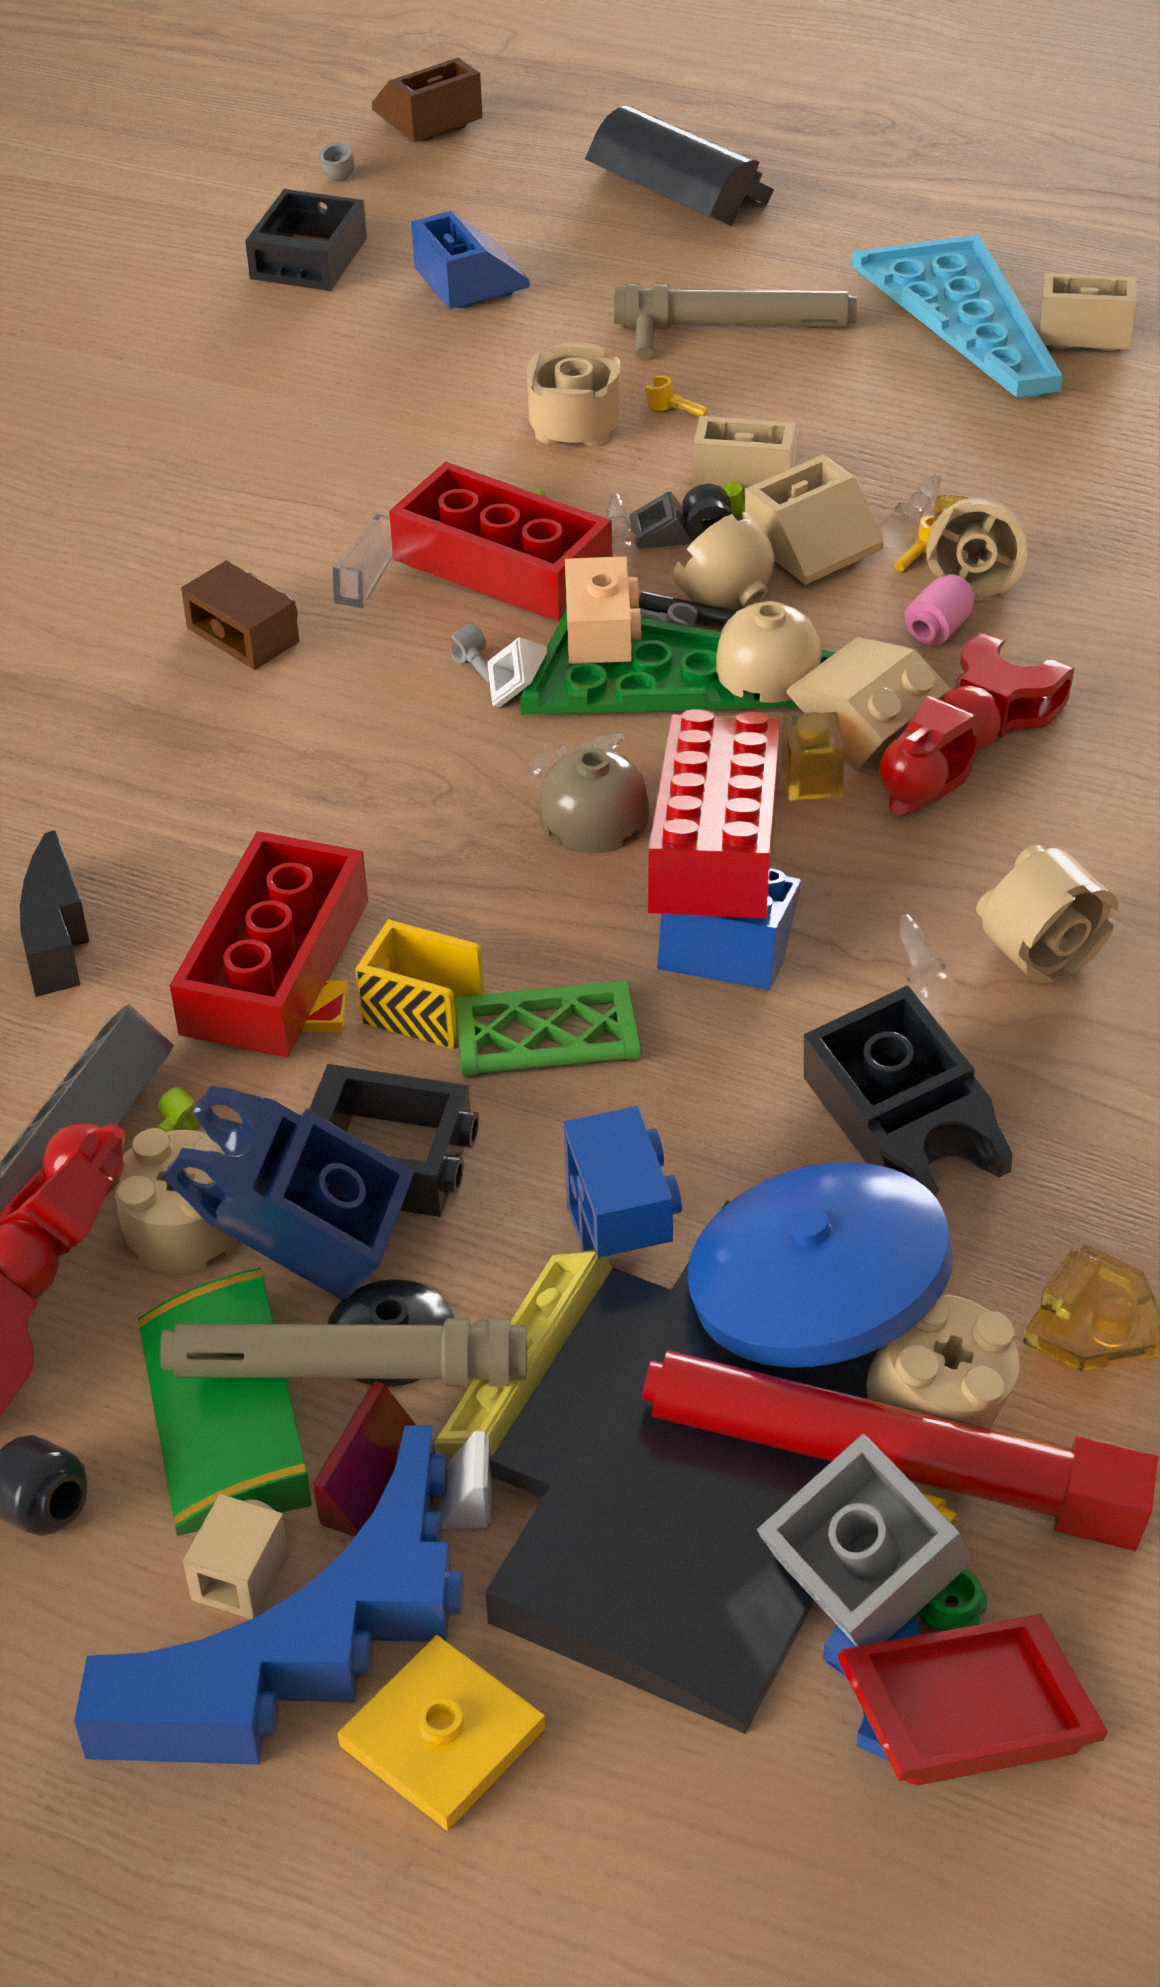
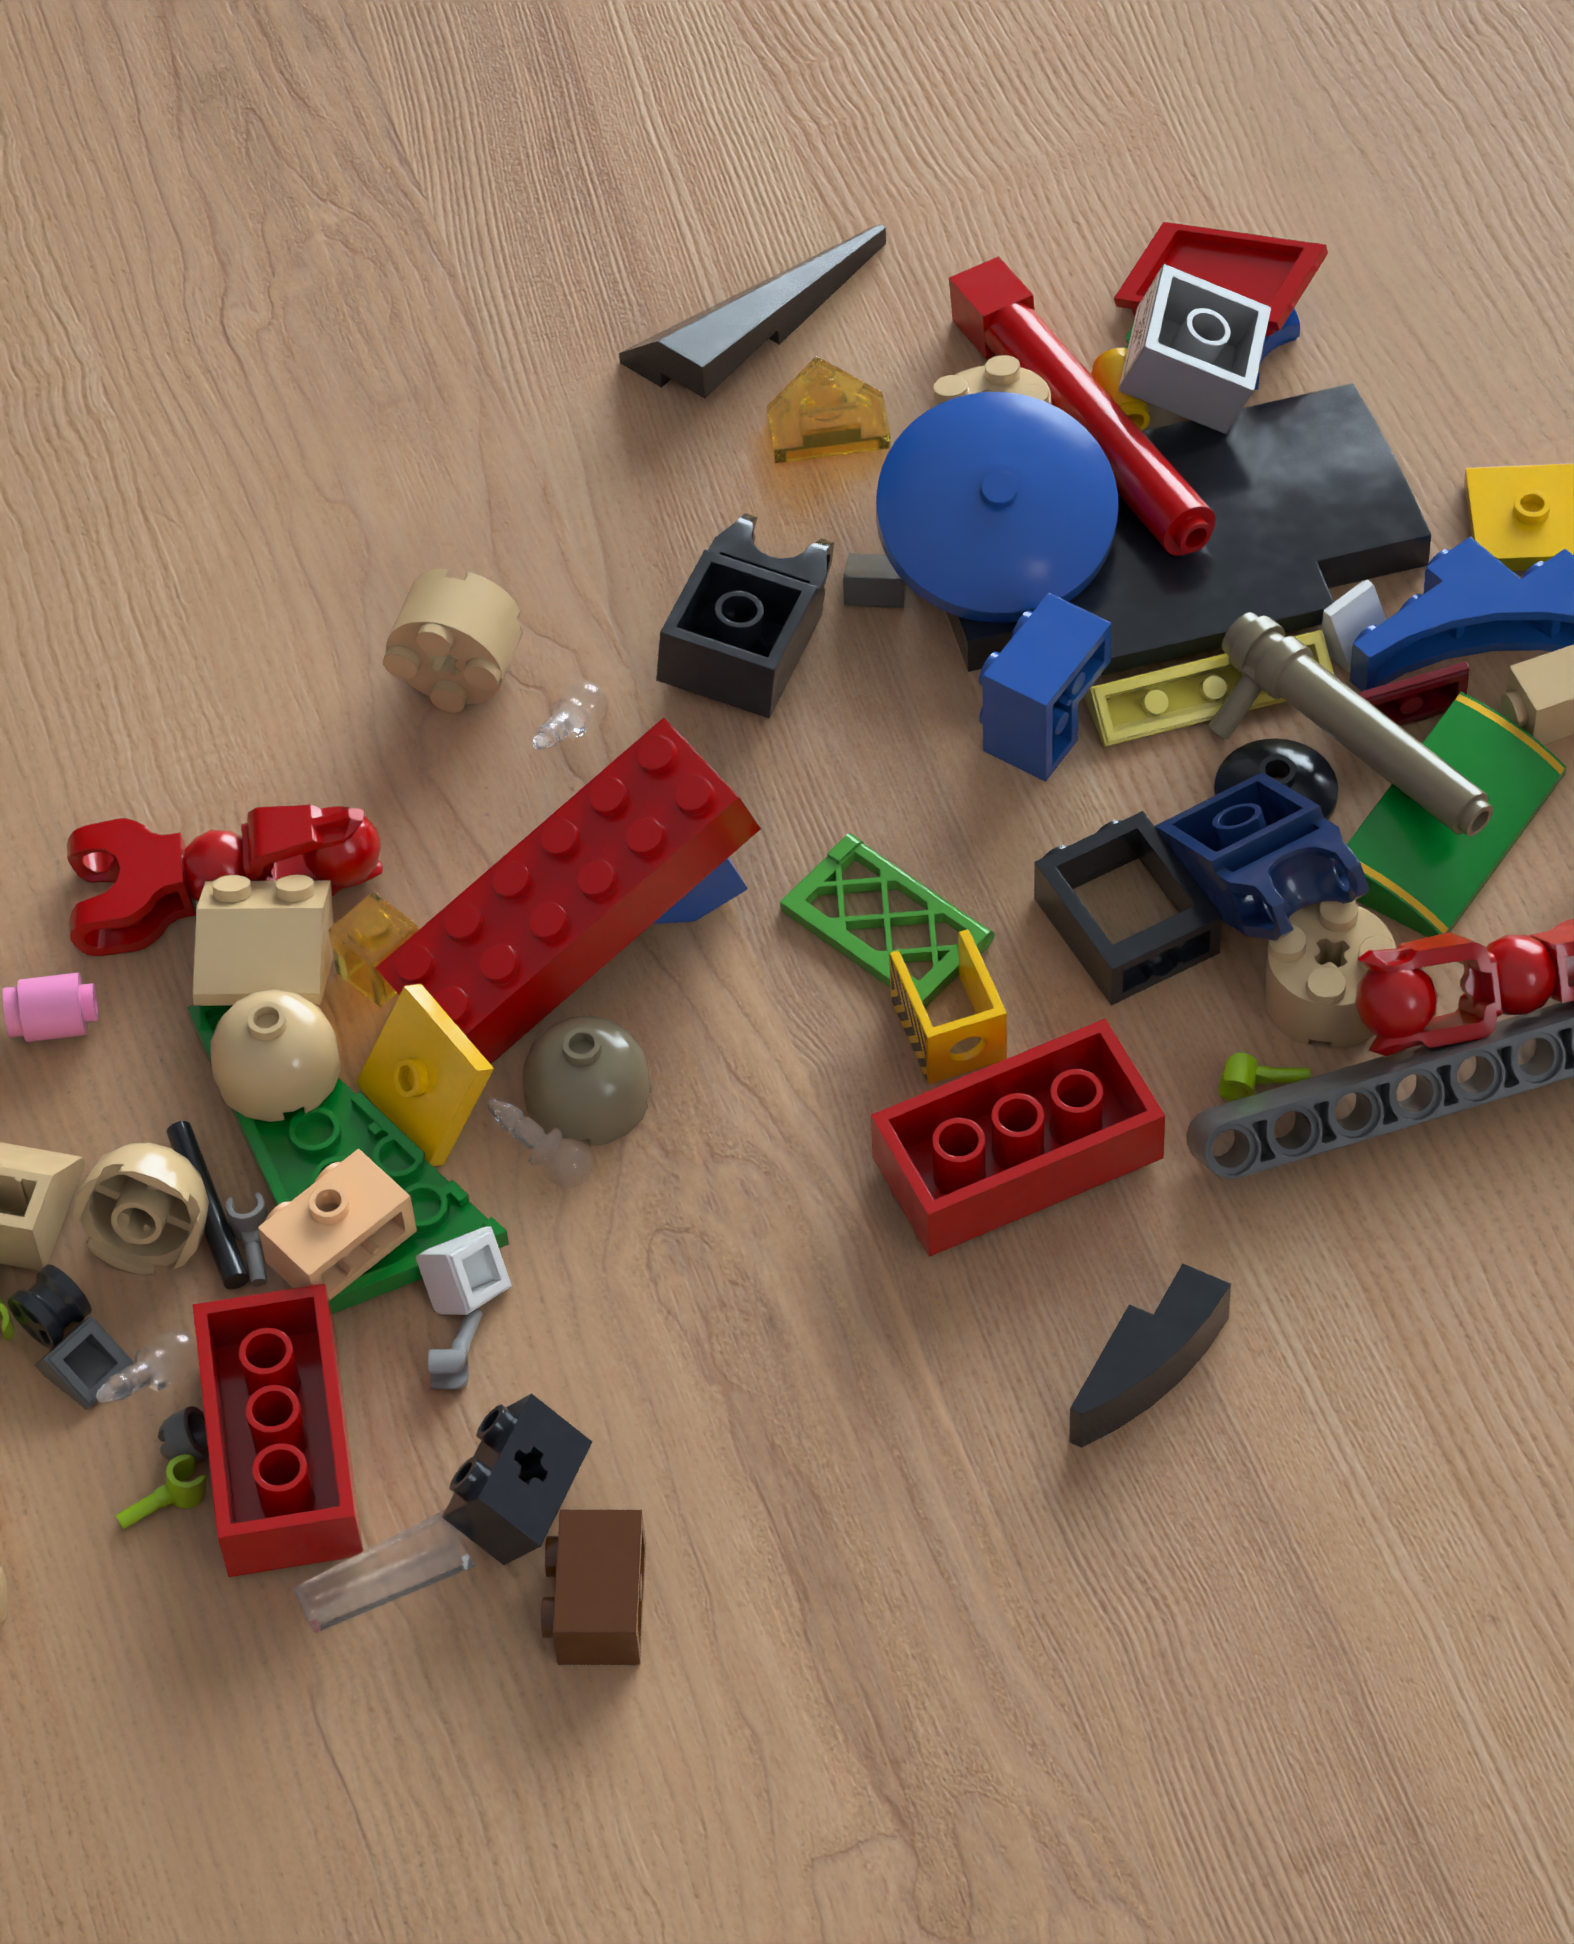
camera: 130 degrees left, 10 degrees up
(341, 601) = (516, 1478): none -> black brick
(652, 704) = (424, 1074): none -> yellow plate

